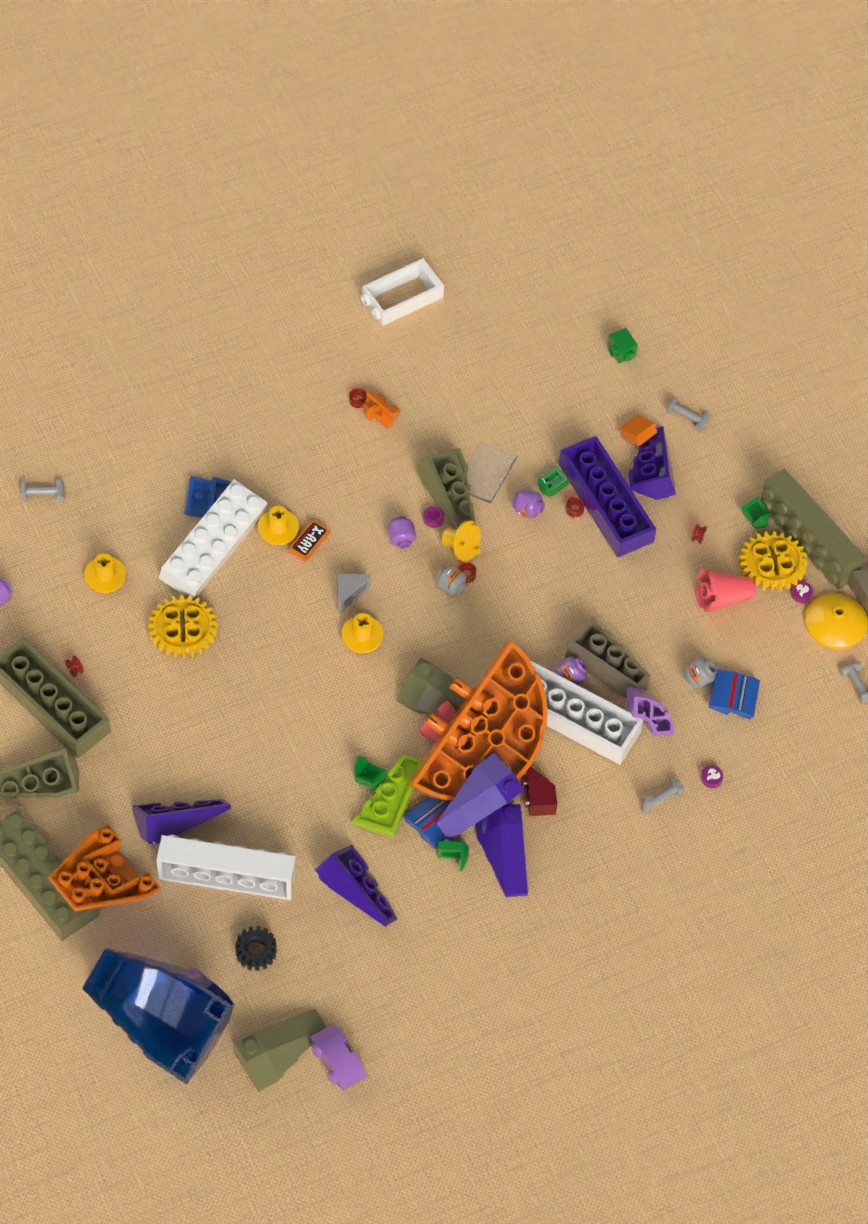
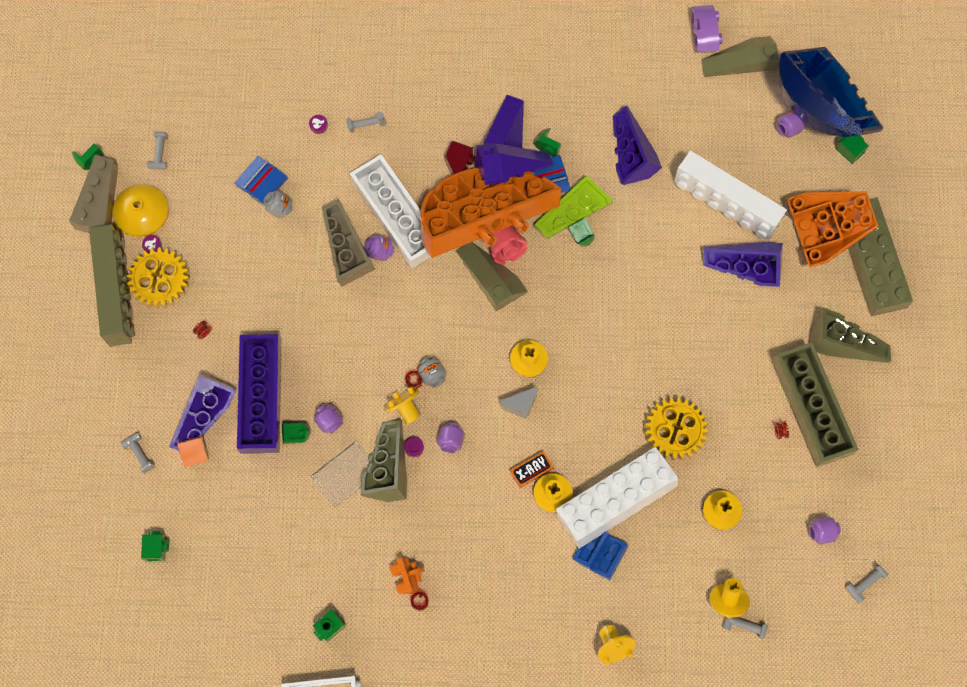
camera: 150 degrees left, 15 degrees up
(66, 500) = (730, 599): none -> yellow piece
(161, 424) = (615, 646): none -> yellow piece
(256, 936) = (729, 143): black tyre -> none
(428, 346) = (328, 626): none -> green brick
(577, 501) = (293, 406): clear red bush -> none
(646, 706) = (340, 181): medium lavender brick -> none
(722, 589) = (216, 265): coral cone -> none
(756, 513) = (143, 326): green plate -> none

